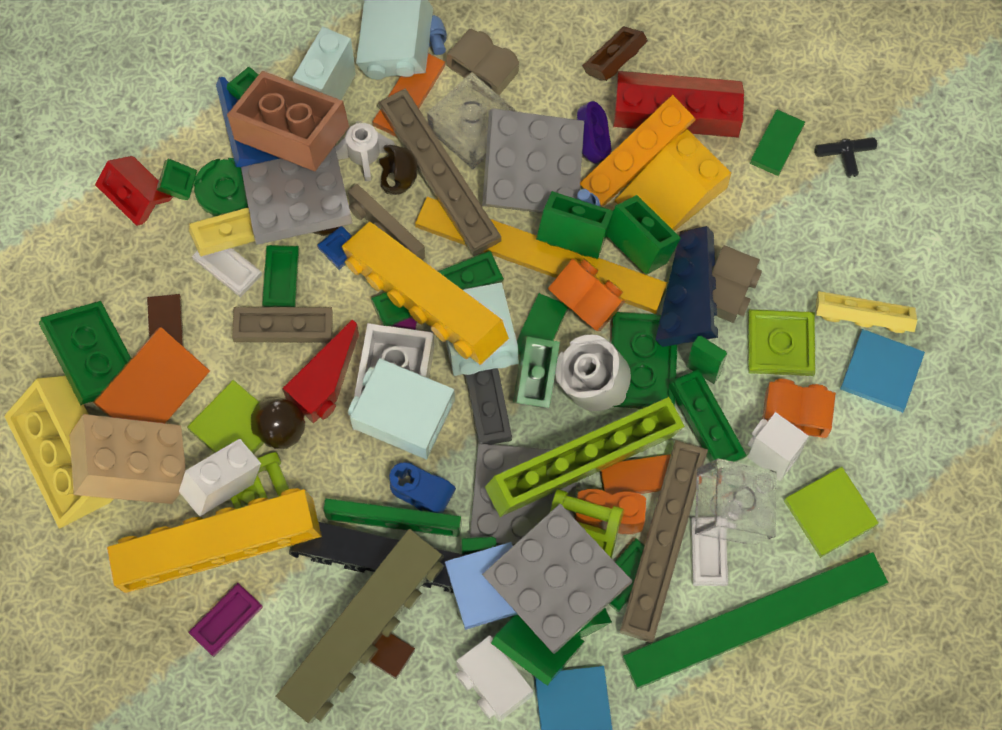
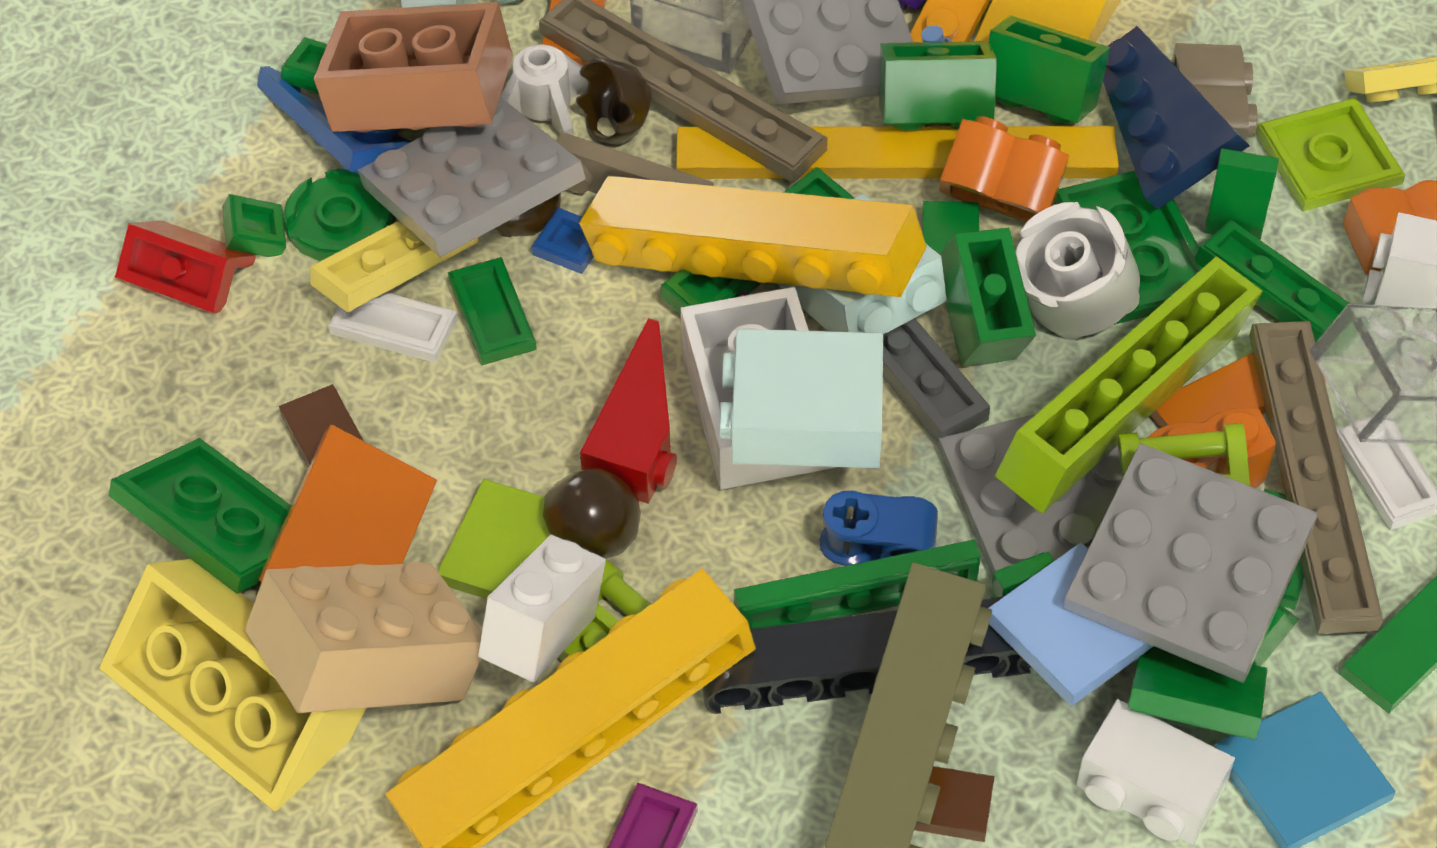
camera: 20 degrees left, 15 degrees down
(282, 324) = (529, 373): dark tan plate -> none

